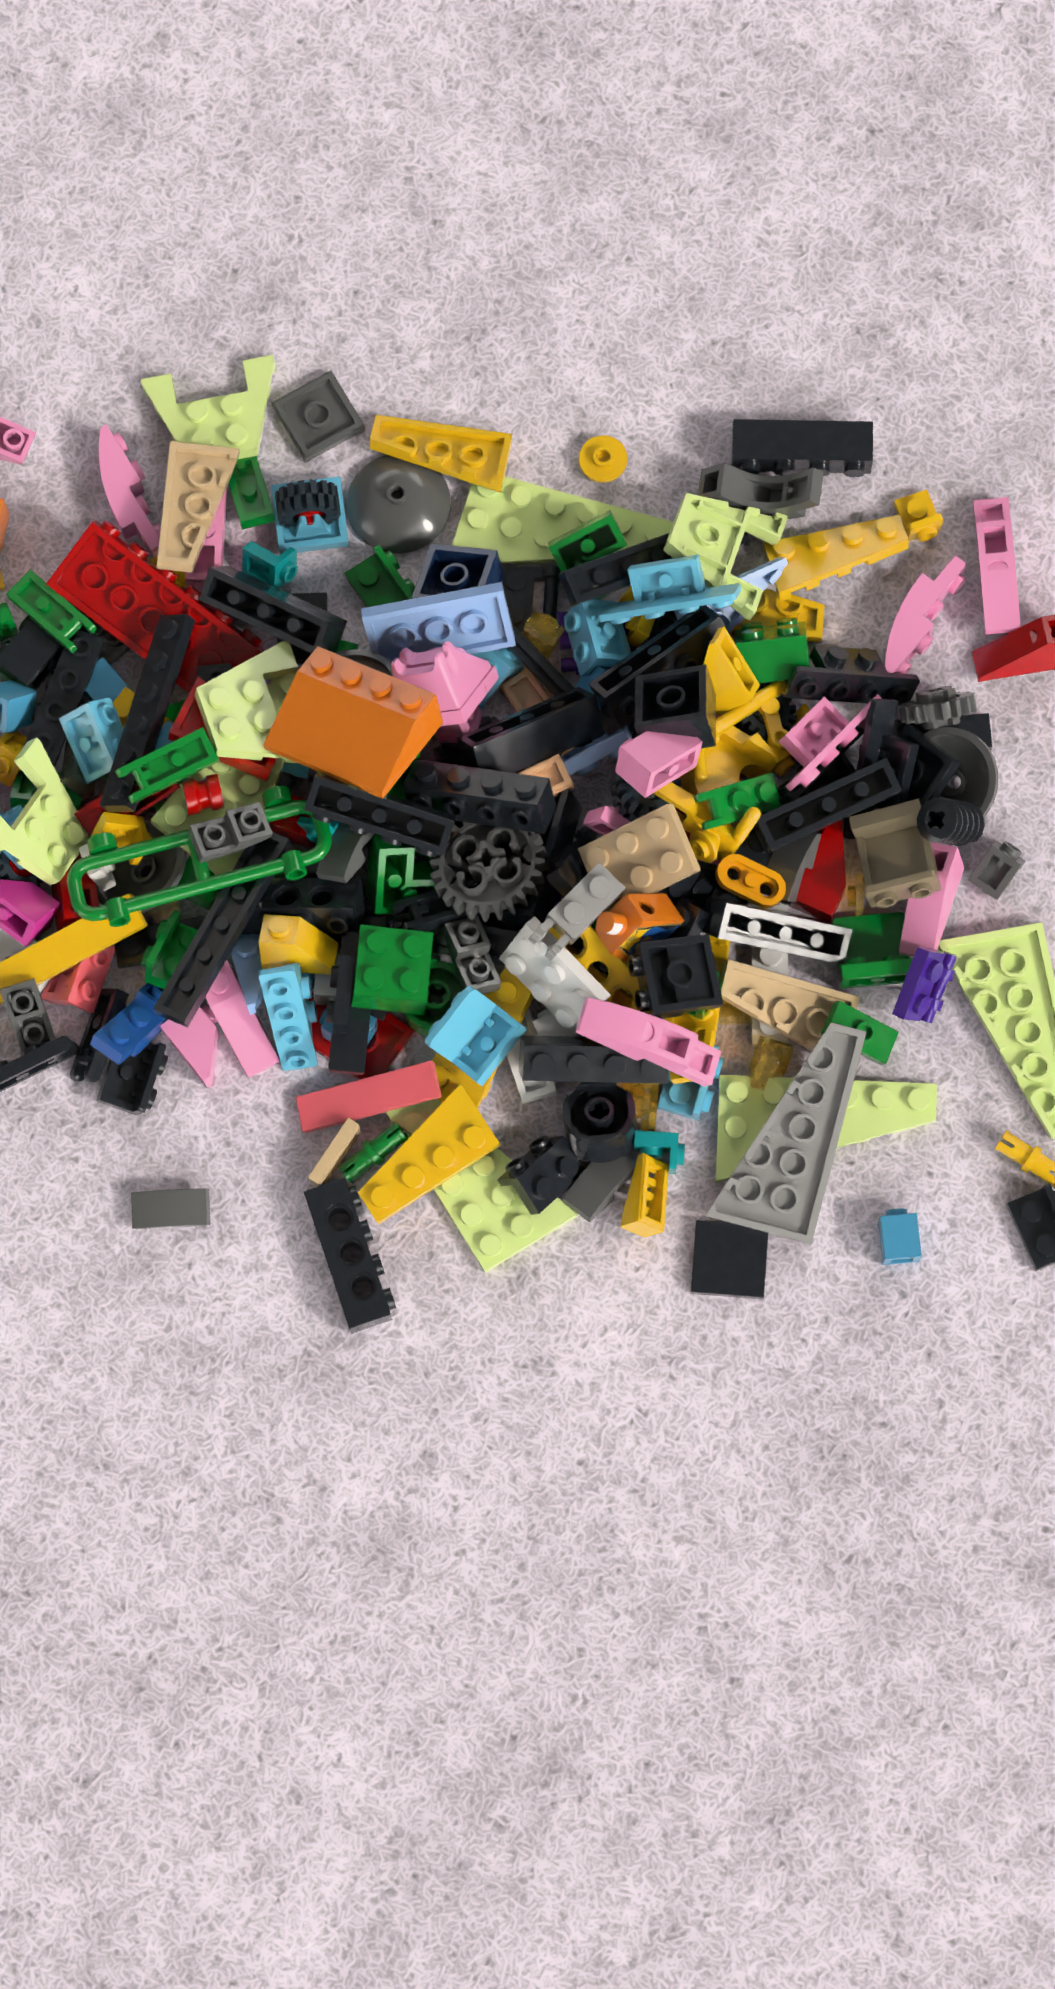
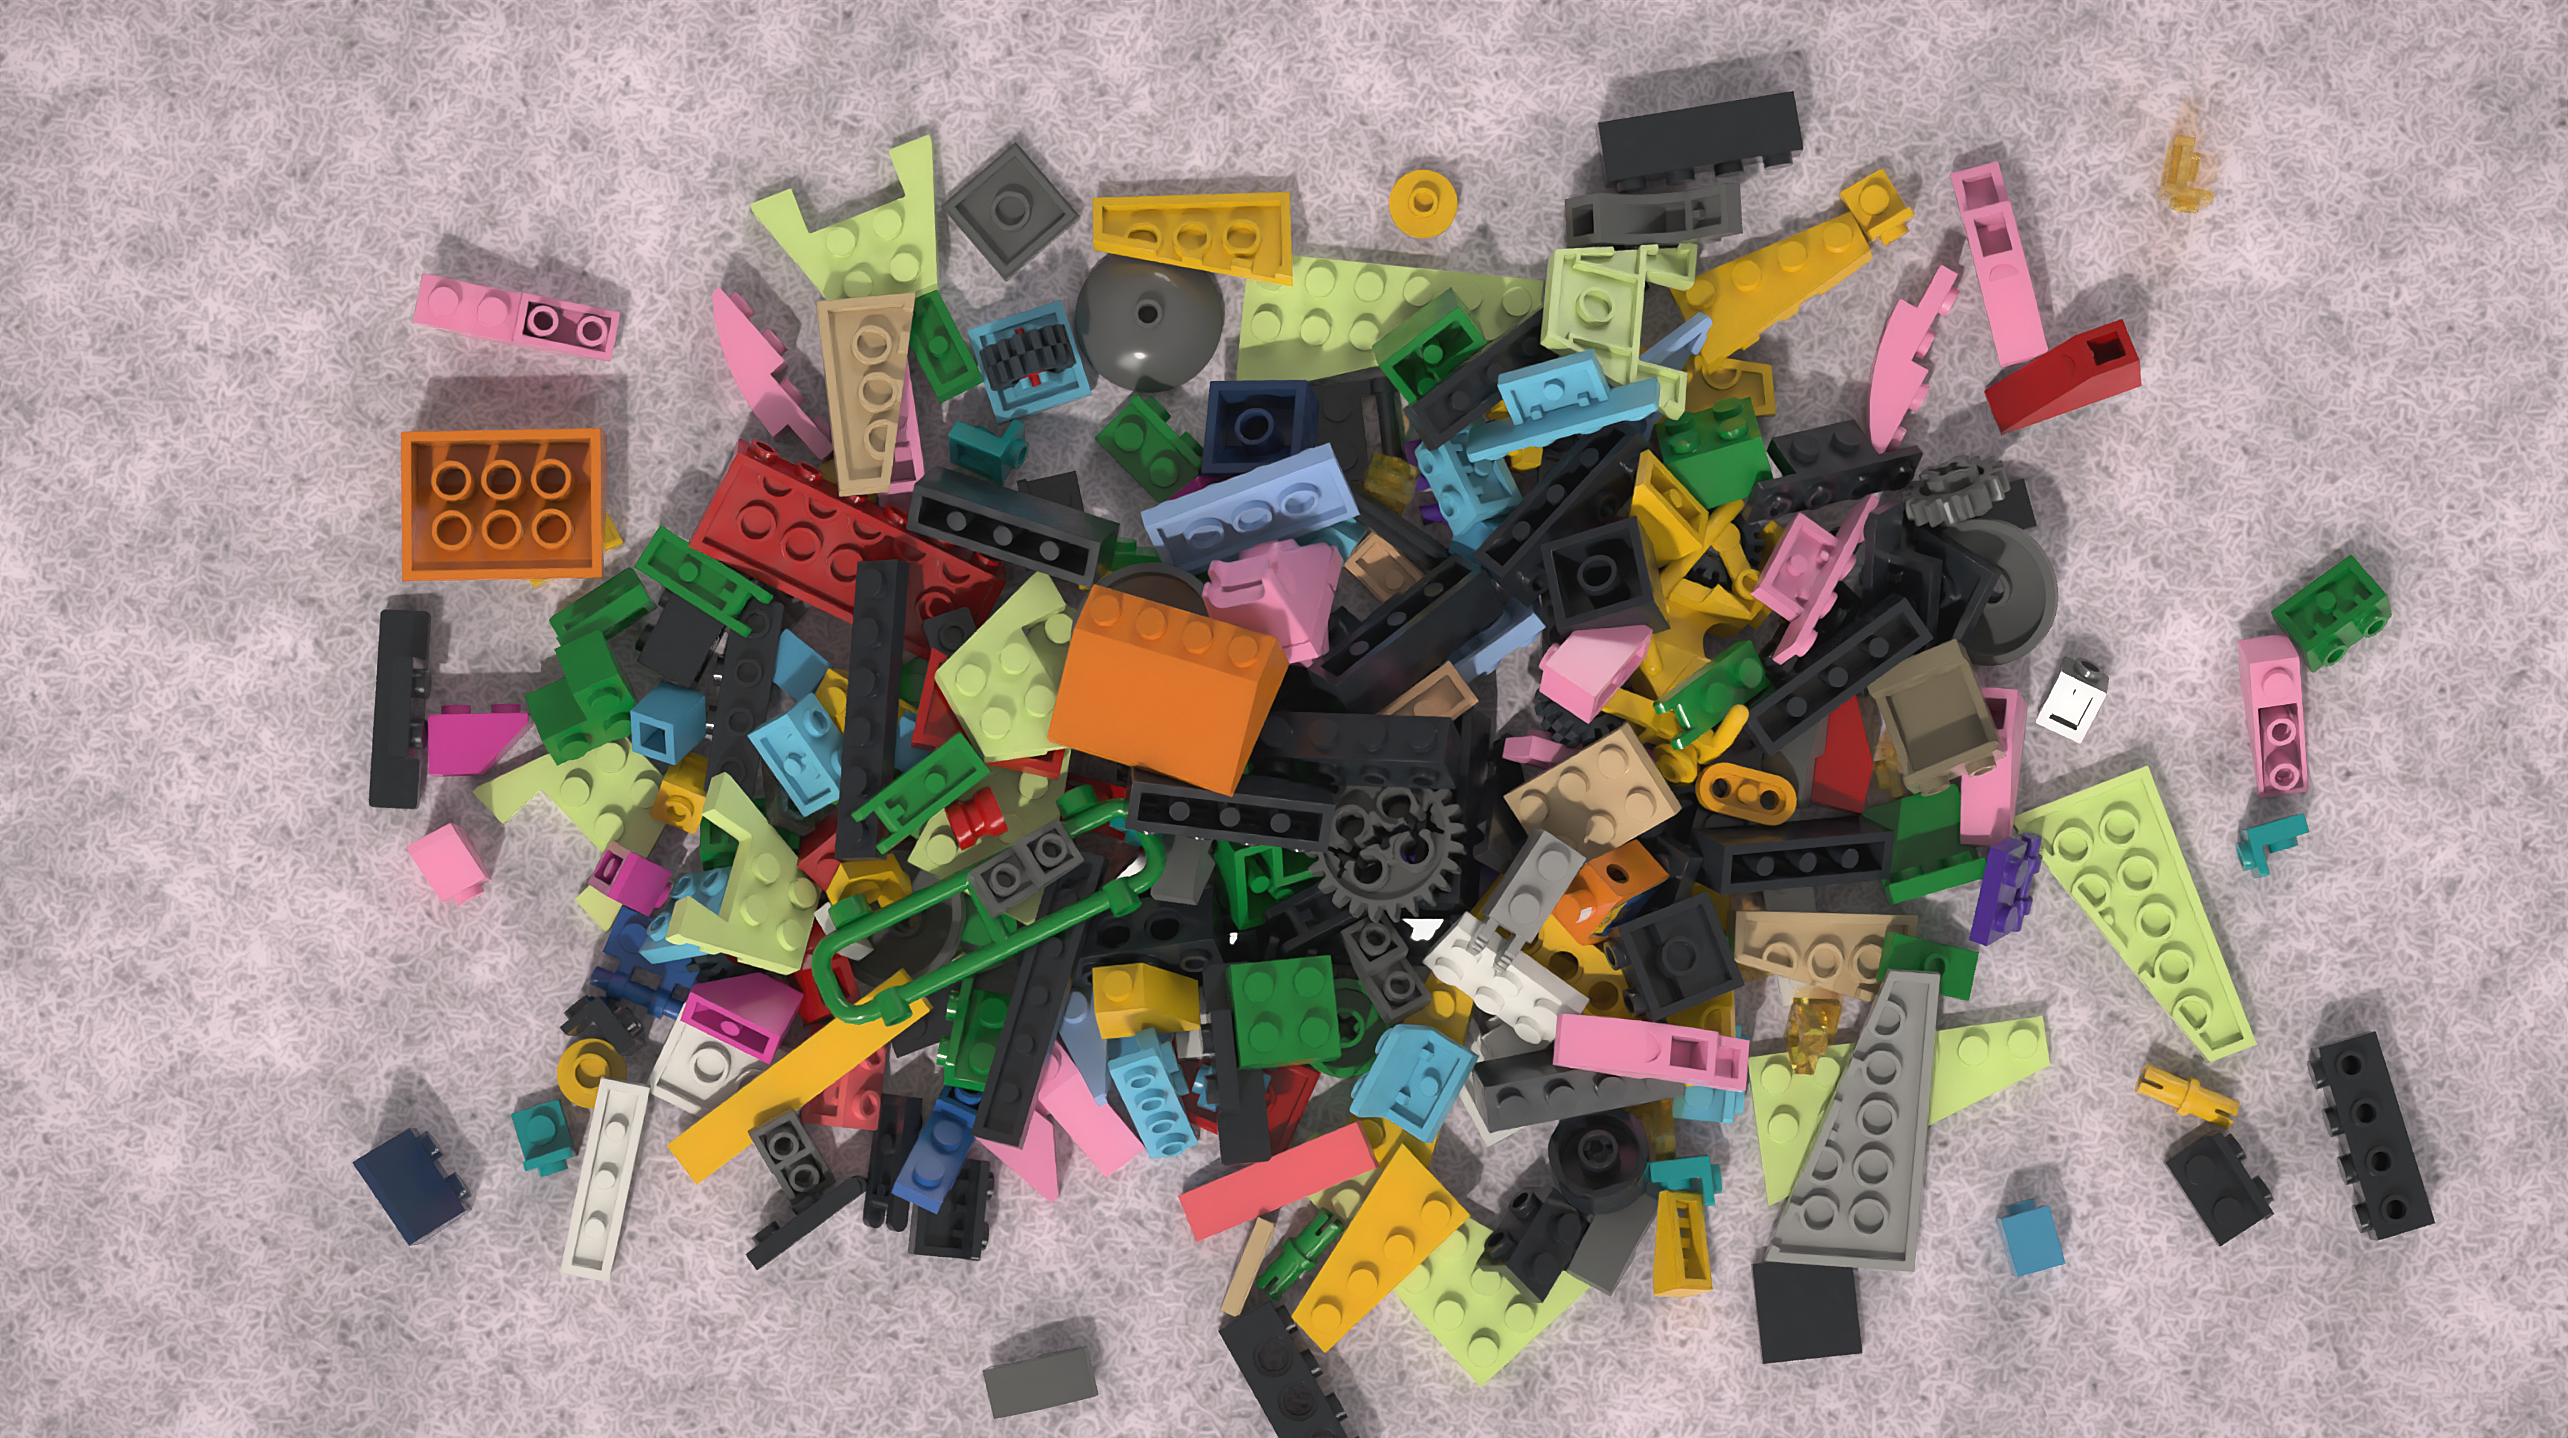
camera: 15 degrees left, 10 degrees up
(950, 821) = (2003, 660): black piece -> none

